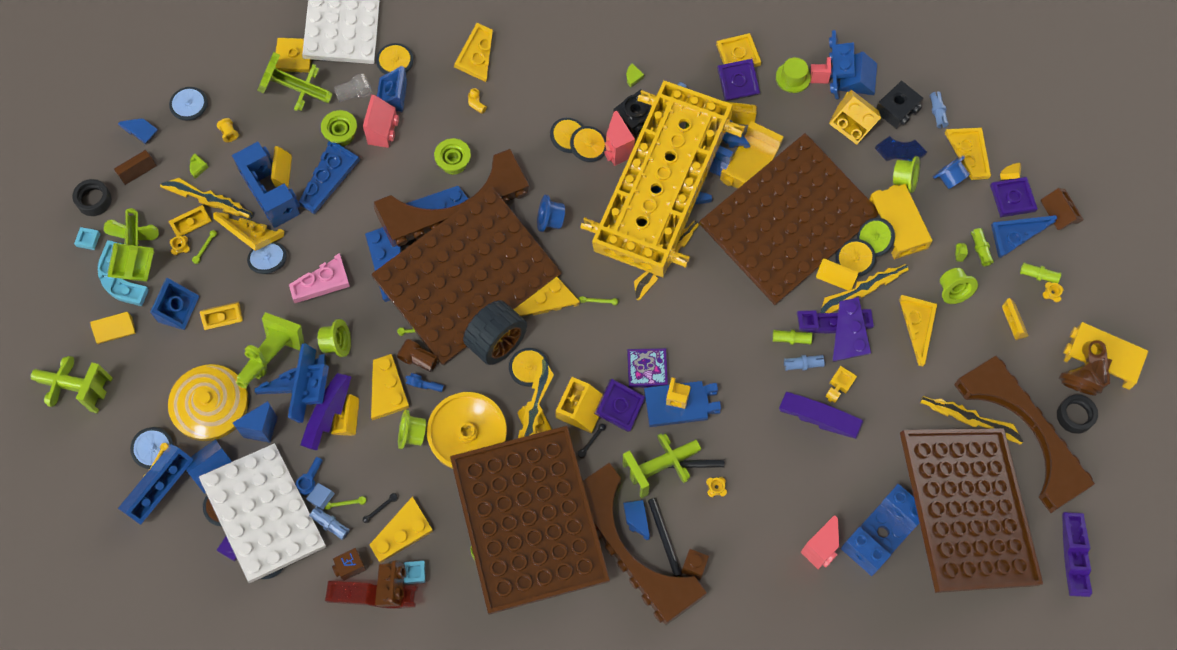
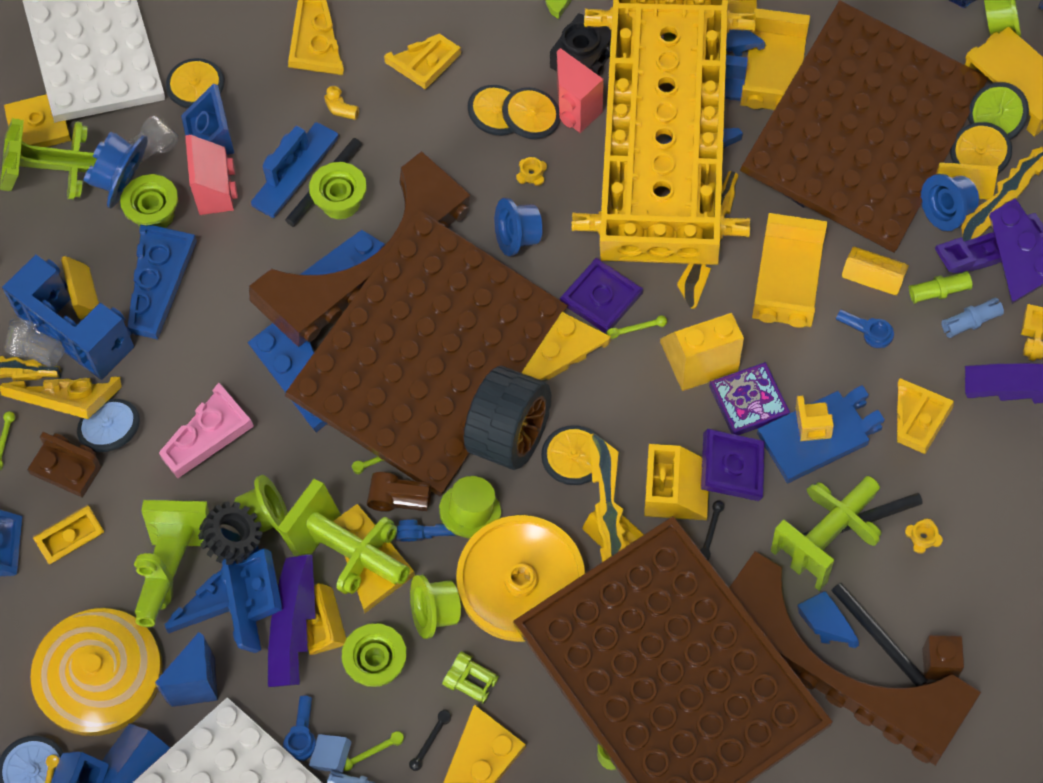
camera: 15 degrees left, 5 degrees down
(233, 273) = (65, 464): none -> reddish brown bracket
(237, 191) = (26, 341): none -> clear piece
(315, 341) = (220, 545): none -> black tyre
(325, 99) = (115, 165): none -> blue piece
(359, 357) = (312, 523): none -> lime piece
(364, 448) = (374, 655): none -> lime piece
(411, 474) = (459, 672): none -> lime piece
(423, 163) = (304, 205): none -> black bar
(431, 131) = (291, 165): none -> blue bracket
(455, 378) = (469, 506): none -> lime piece
(538, 88) = (425, 59): none -> yellow wing
(573, 176) = (531, 164): none -> yellow plate
(585, 273) = (601, 295): none -> dark purple tile
(629, 330) = (704, 351): none -> yellow slope
(704, 296) = (789, 270): none -> yellow panel
(741, 352) = (877, 332): none -> blue plate
(745, 413) = (920, 415): none -> yellow wing
(757, 312) = (874, 271): none -> yellow slope
(819, 284) = (948, 200): none -> blue piece

